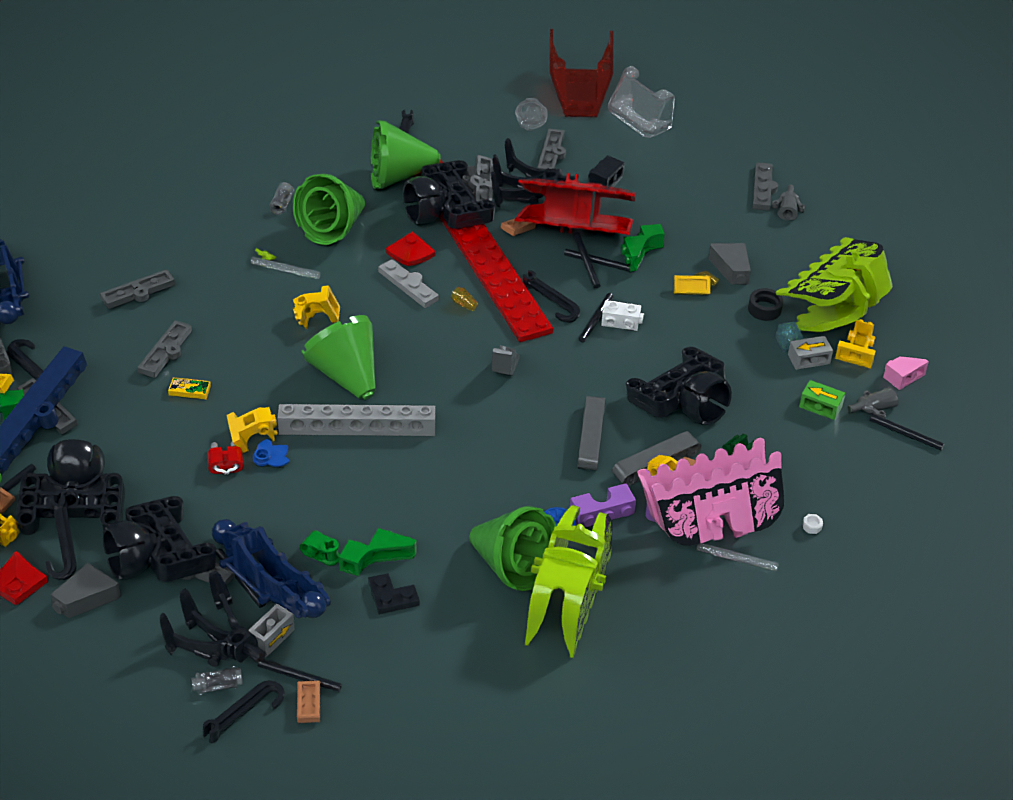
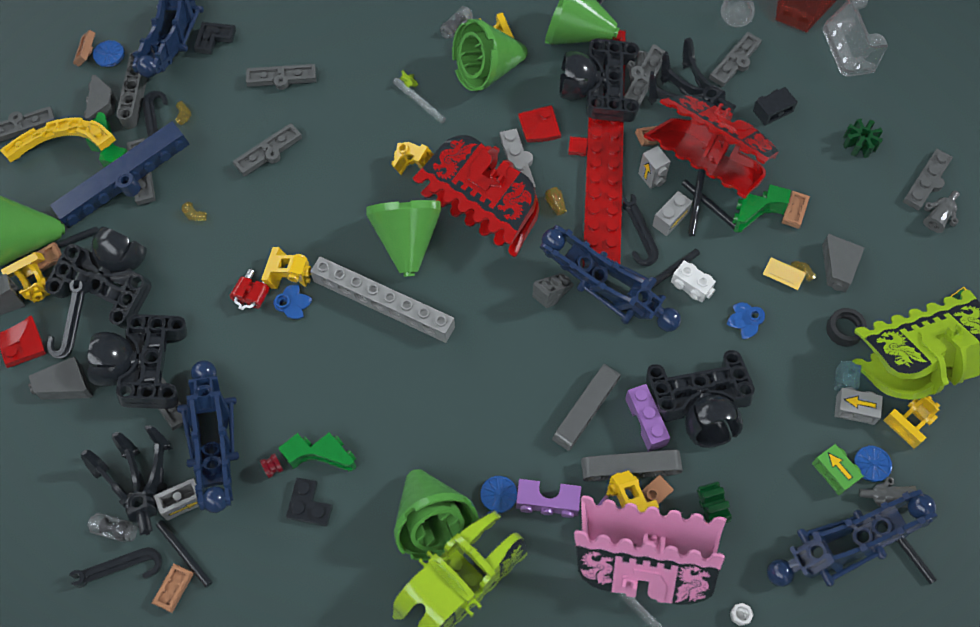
camera: 30 degrees right, 20 degrees up
(43, 278) = (213, 32): none -> black plate
(55, 346) = (184, 114): none -> clear yellow arm
(122, 422) = (192, 214): none -> clear yellow arm
(189, 388) = (265, 200): tile -> none
(321, 548) = (274, 425): green piece -> none
(339, 576) = (271, 465): none -> dark red wheel
(414, 312) = (466, 178): none -> red animal
(455, 255) = (577, 146): none -> red tile
(535, 244) = (654, 167): none -> light grey brick
(548, 334) = (650, 305): none -> dark blue piece
(571, 274) = (672, 213): none -> light grey brick
(659, 425) = (652, 426): none -> medium lavender arch
(672, 240) = (795, 210): none -> nougat plate
(679, 327) = (743, 319): none -> blue plate
(693, 173) = (862, 138): none -> dark green gear
(848, 452) = (919, 506): none -> dark blue piece
(850, 385) = (873, 463): none -> blue wheel
(904, 371) = (945, 471): bright pink slope -> none

